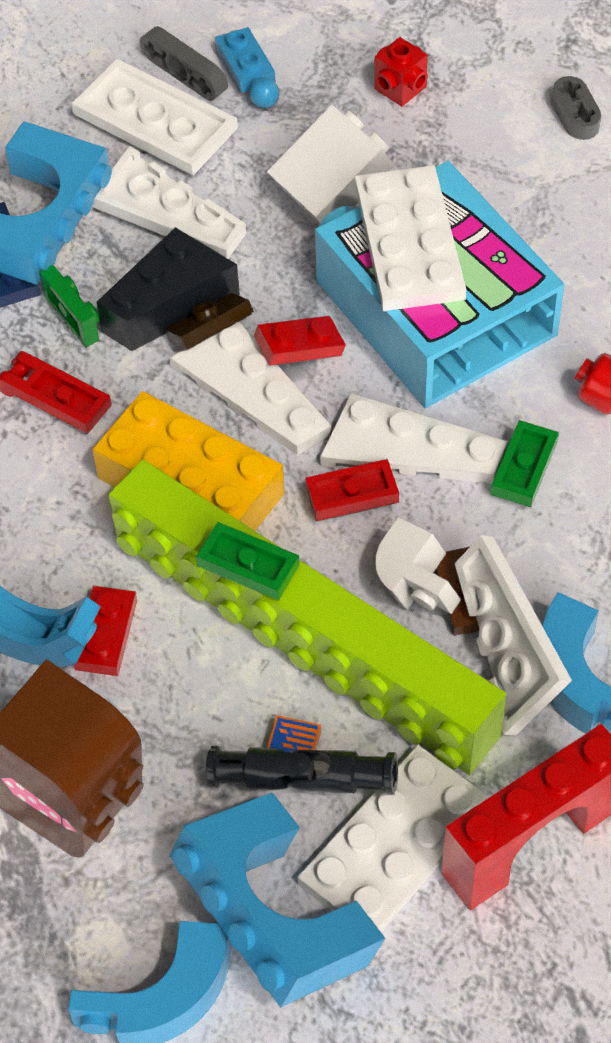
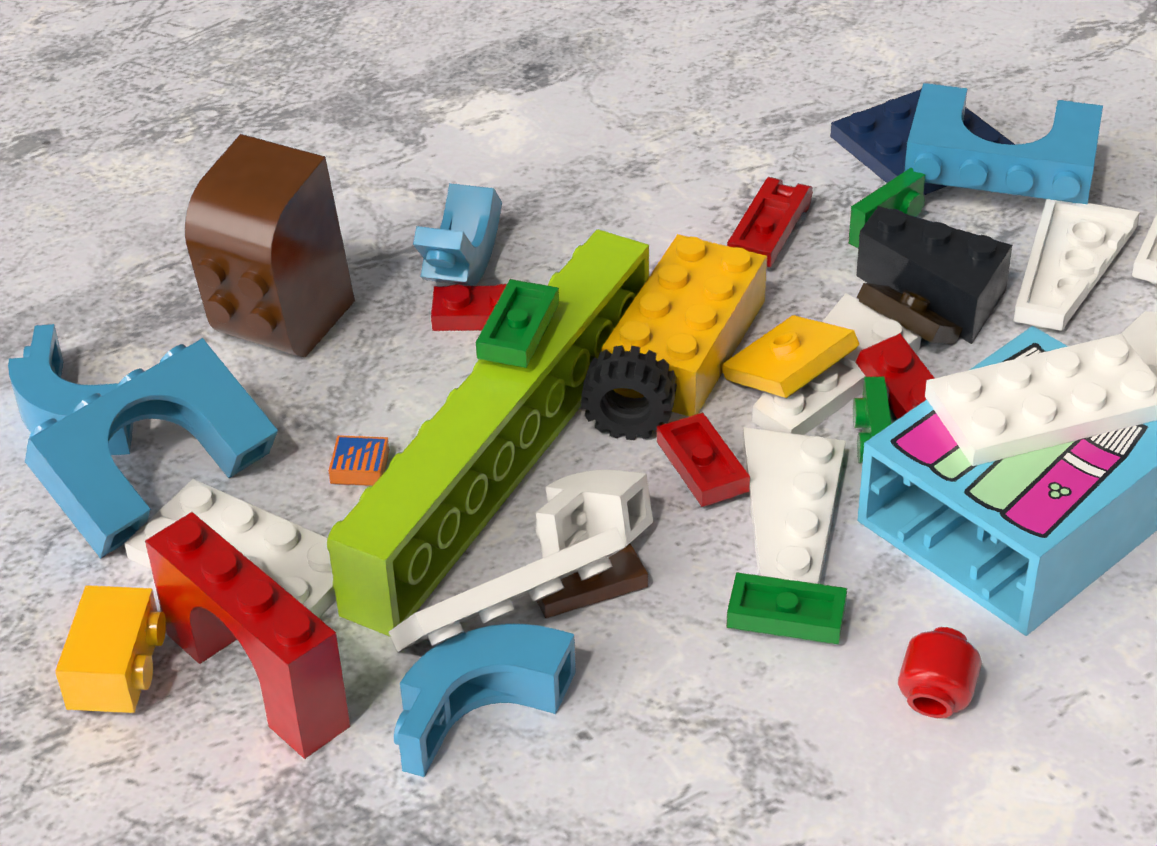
camera: 80 degrees right, 15 degrees down
(254, 403) = (790, 355): none -> yellow plate
(276, 769) = (310, 464): black piece -> none
(285, 514) = (634, 372): none -> black tyre
(347, 369) = (870, 412): none -> green plate
(513, 937) = (110, 649): none -> yellow brick

